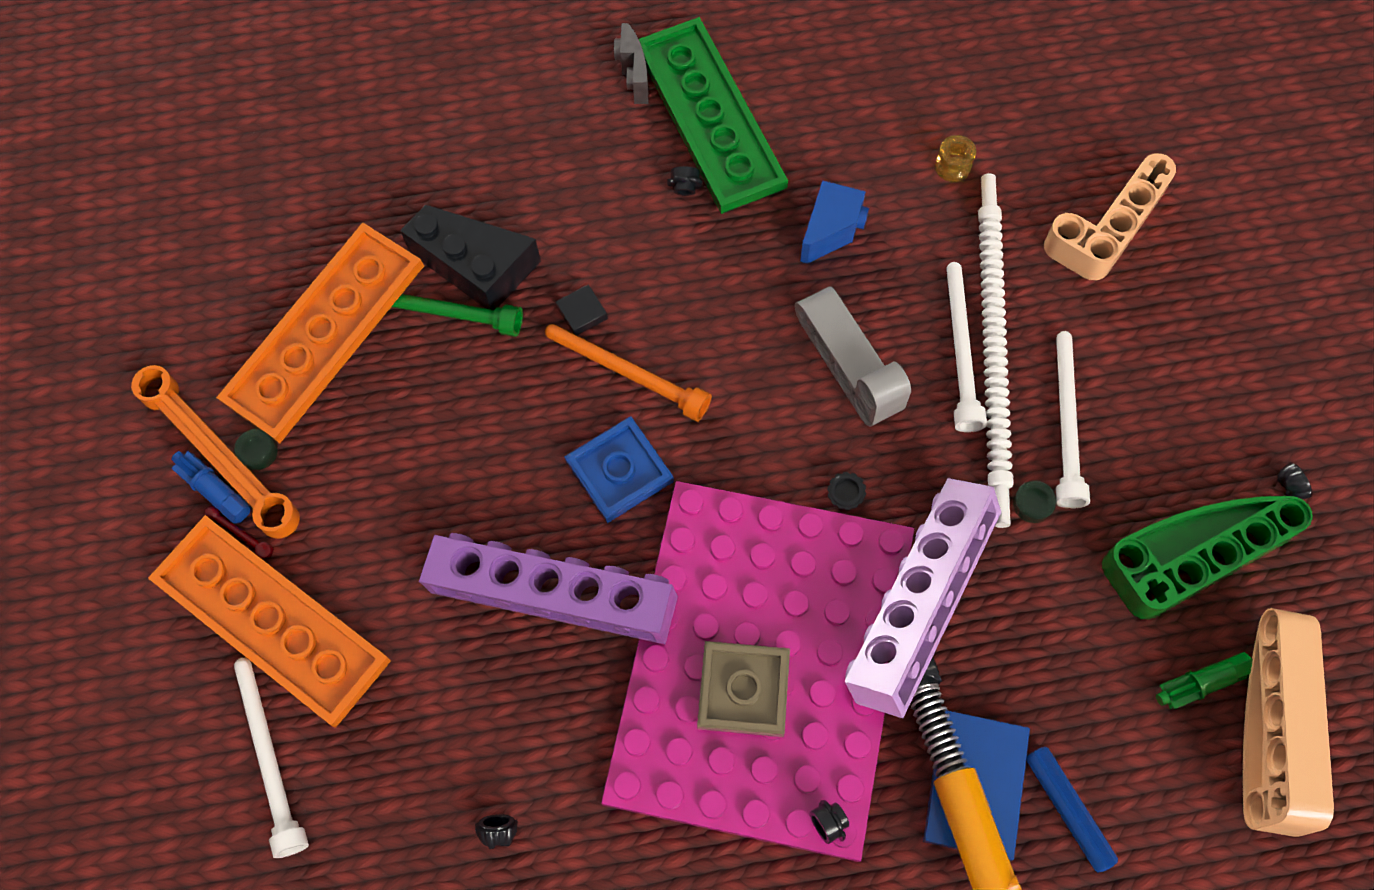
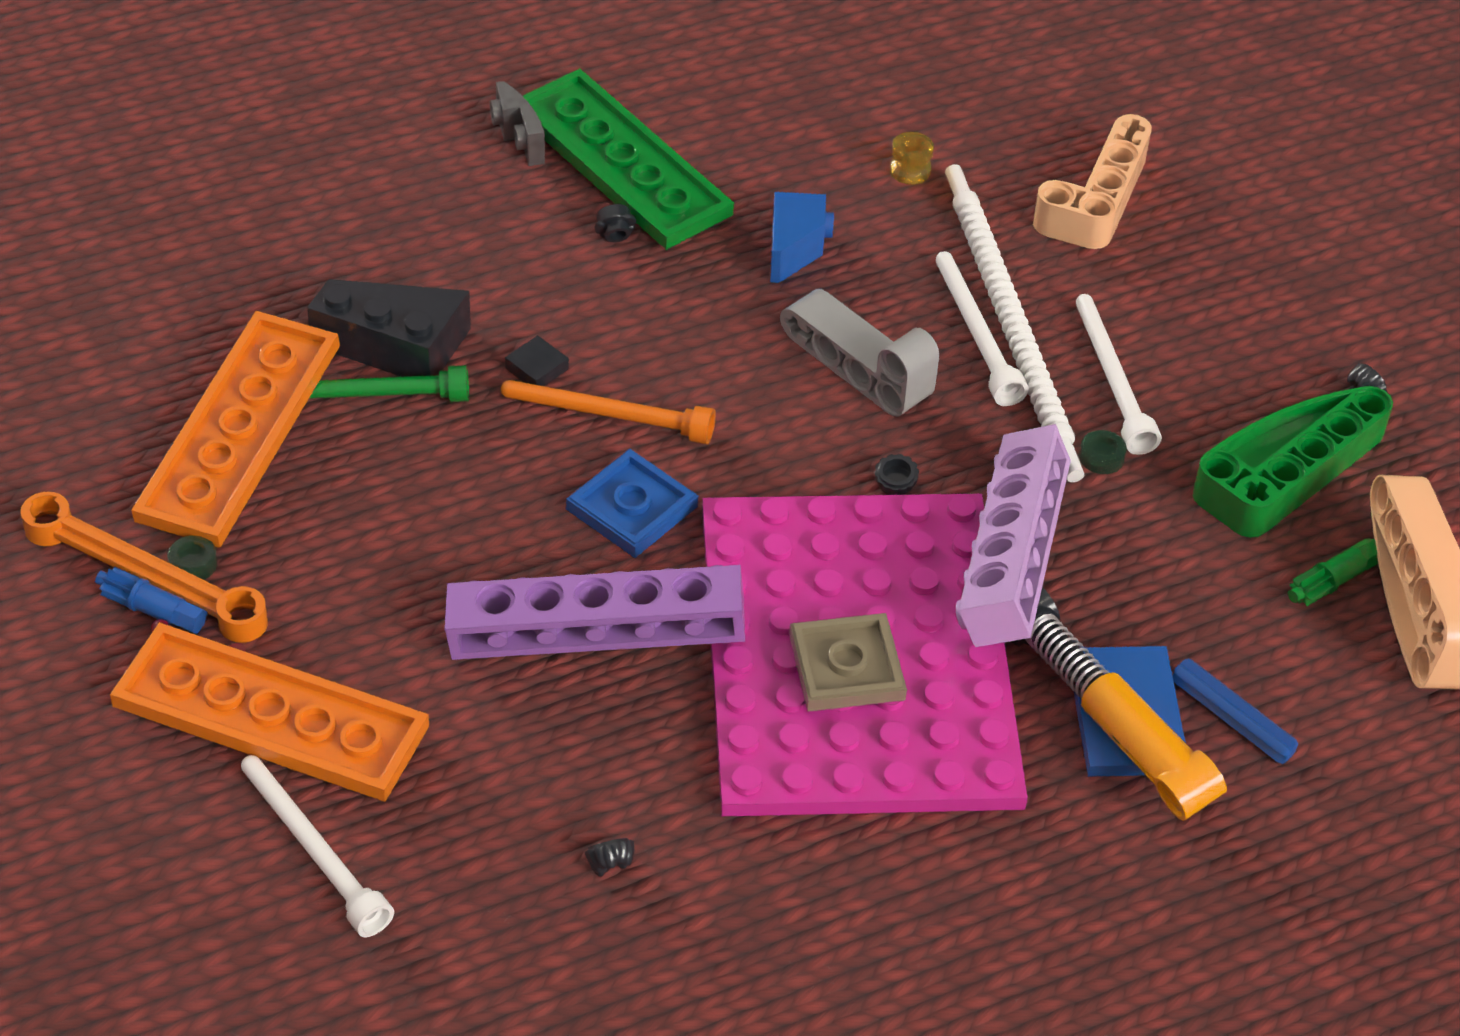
camera: 20 degrees left, 20 degrees down
(829, 821) = (982, 755): black plate -> none

